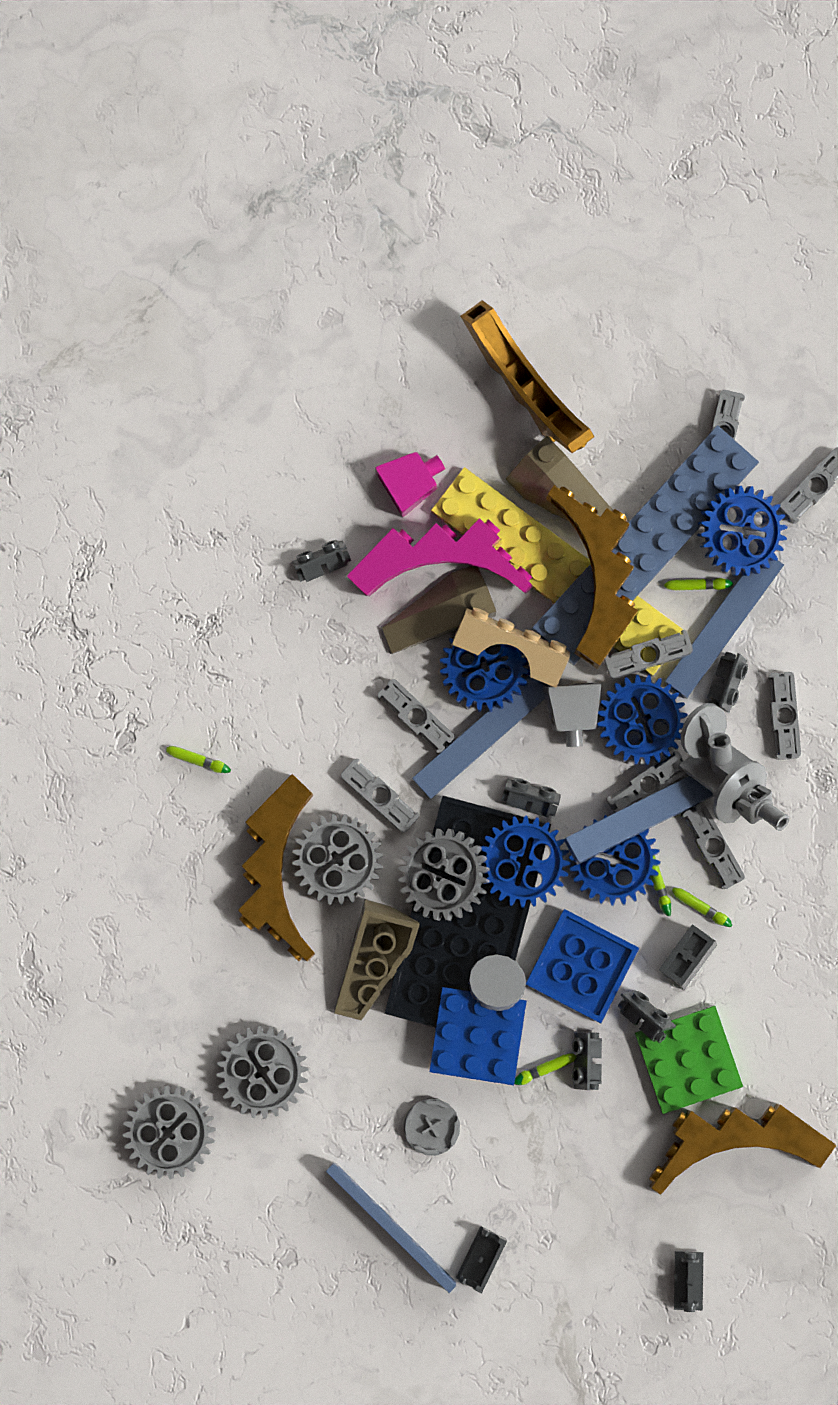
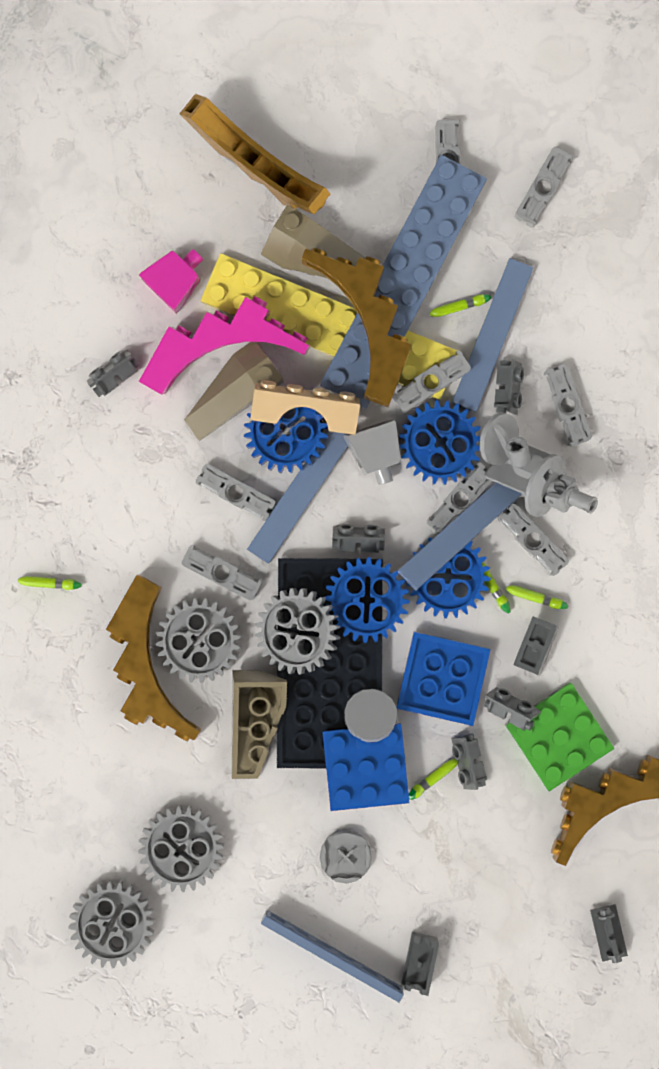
camera: 10 degrees left, 5 degrees up
(746, 505) = (490, 270): blue gear -> none

